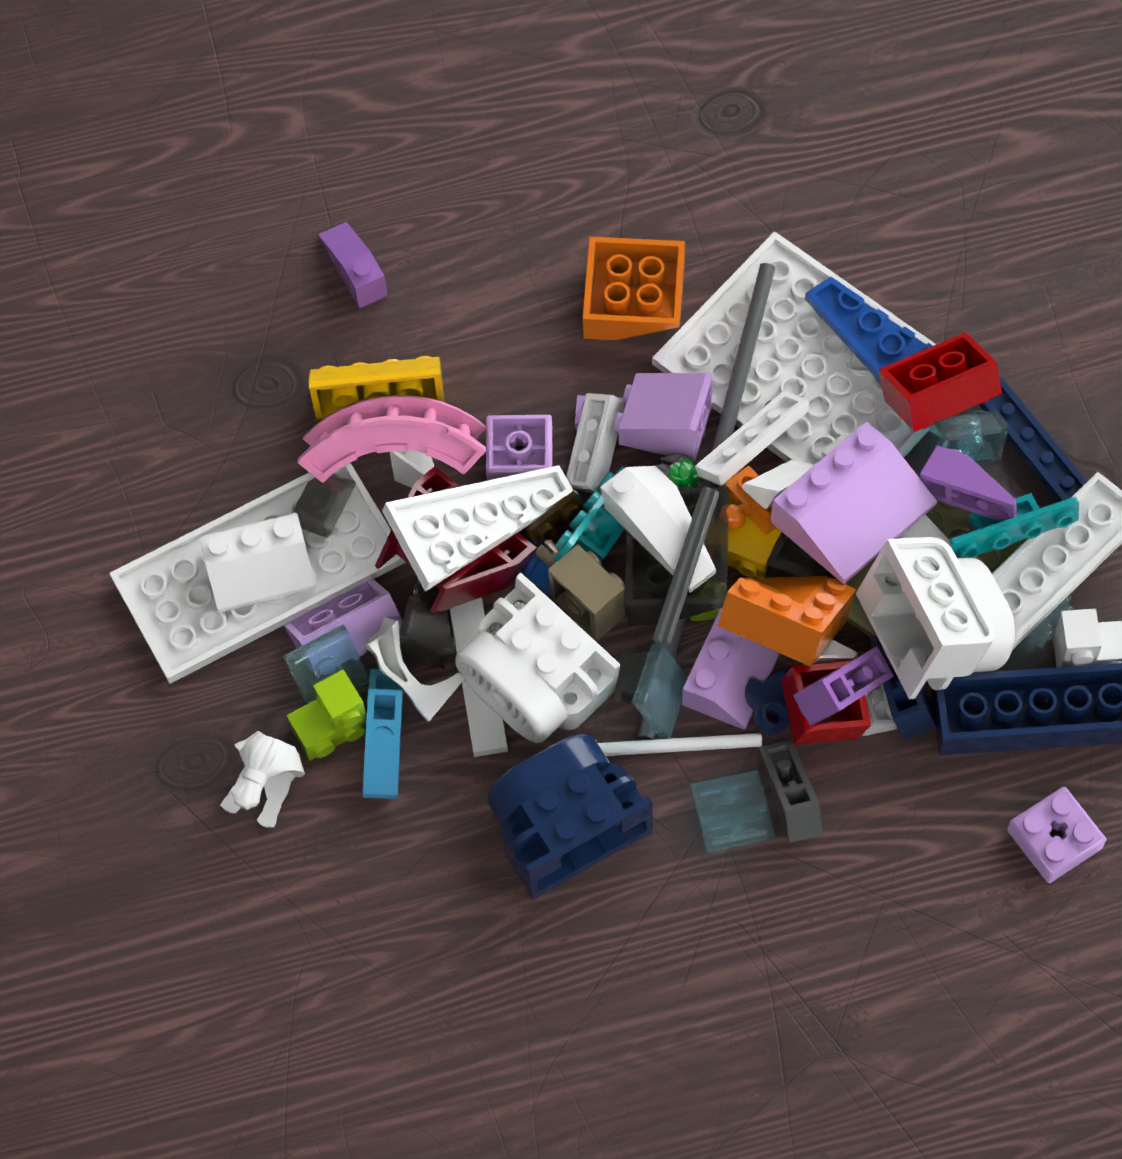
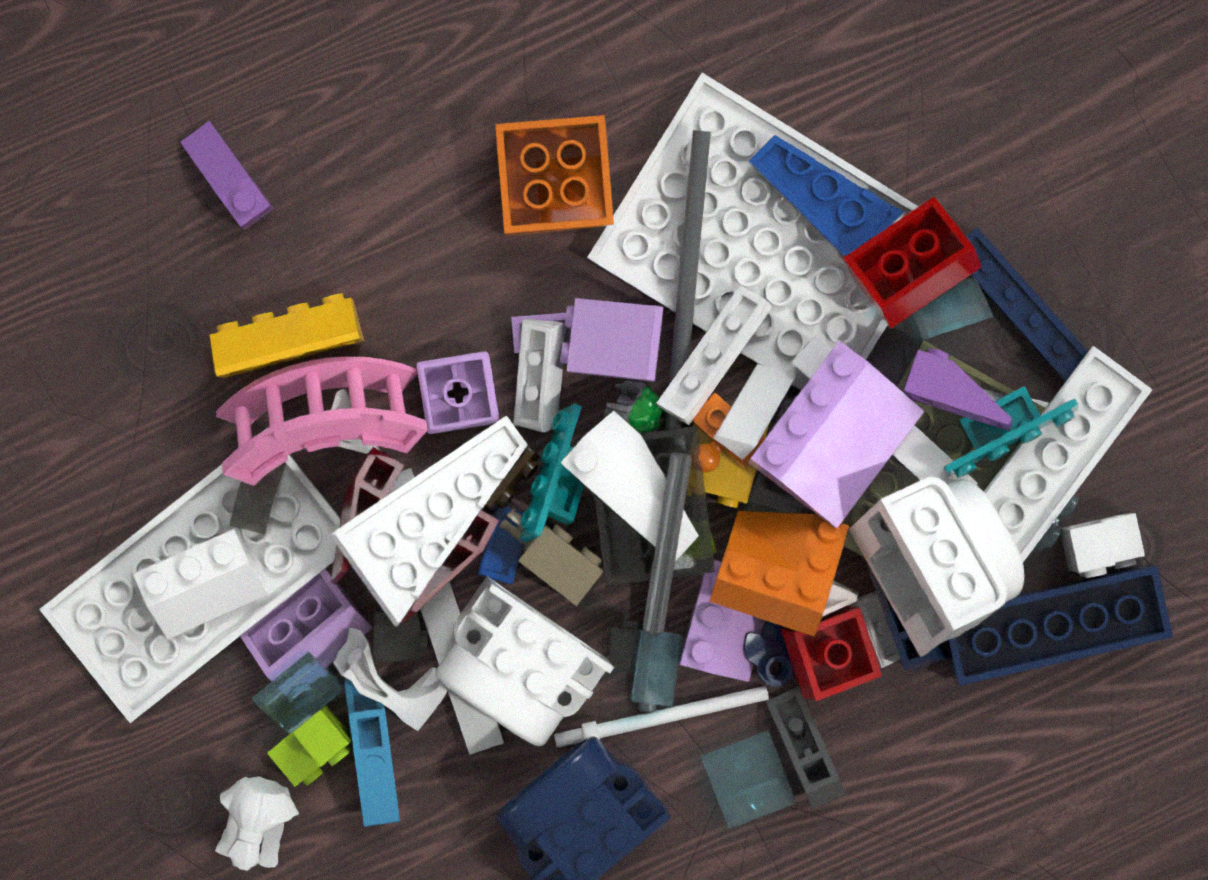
camera: 10 degrees left, 25 degrees up
(843, 686) = (850, 651): medium lavender slope -> none
(1056, 855) = (1059, 756): lavender brick -> none

